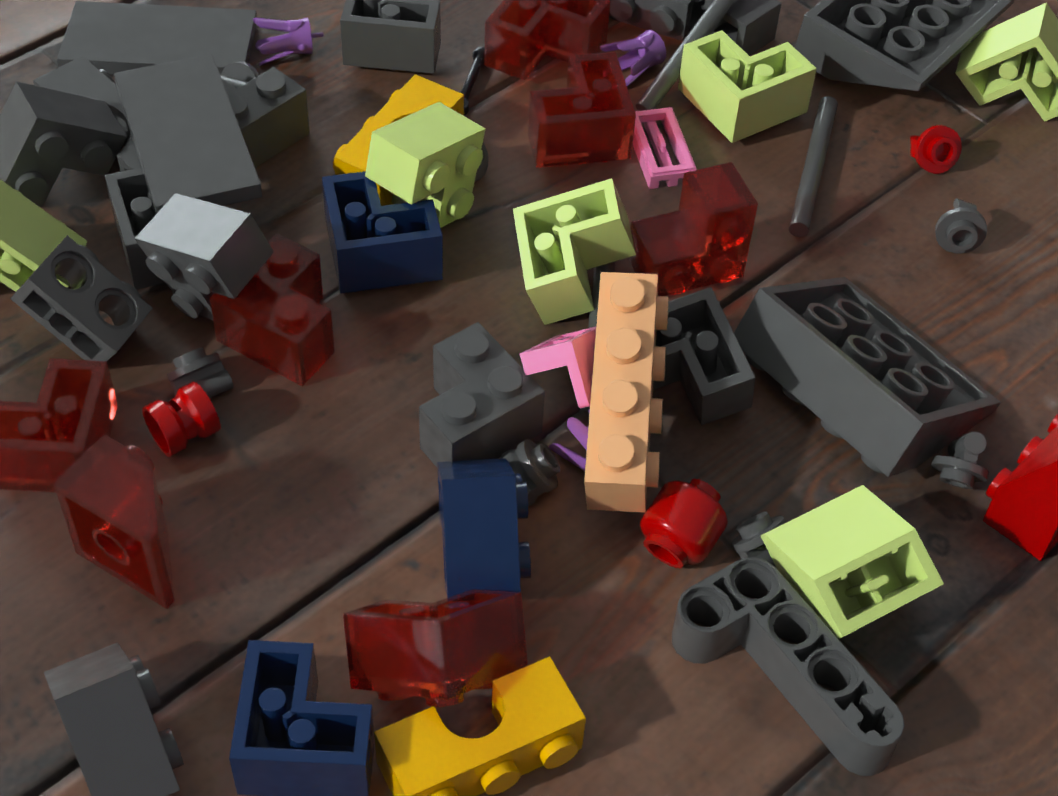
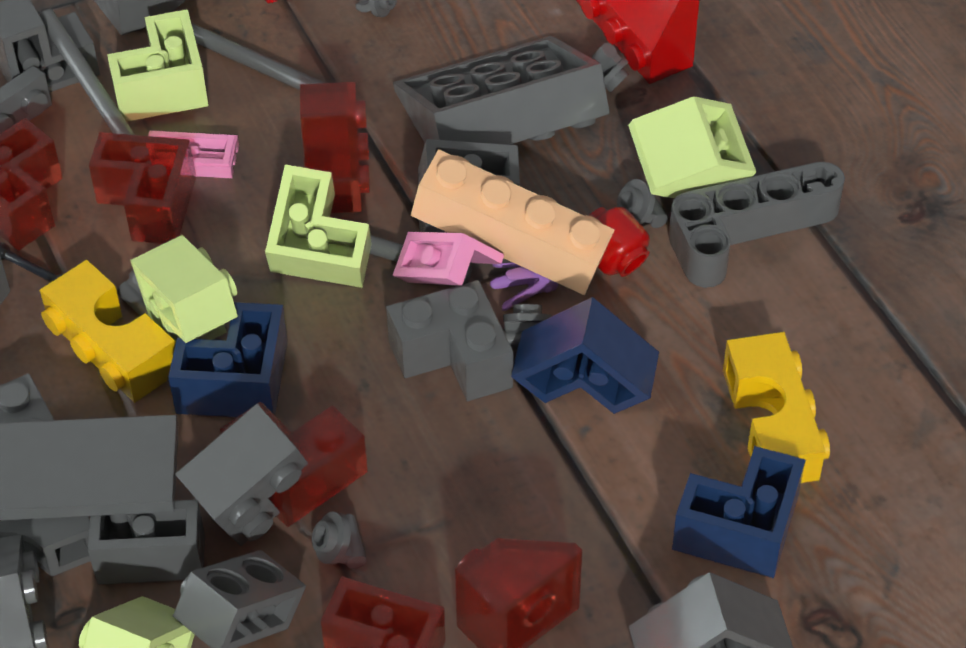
camera: 70 degrees left, 0 degrees up
(181, 419) = (394, 558): red wheel -> none
(435, 646) = (704, 407): clear red brick -> none
(642, 53) = (70, 128): medium lavender piece -> none

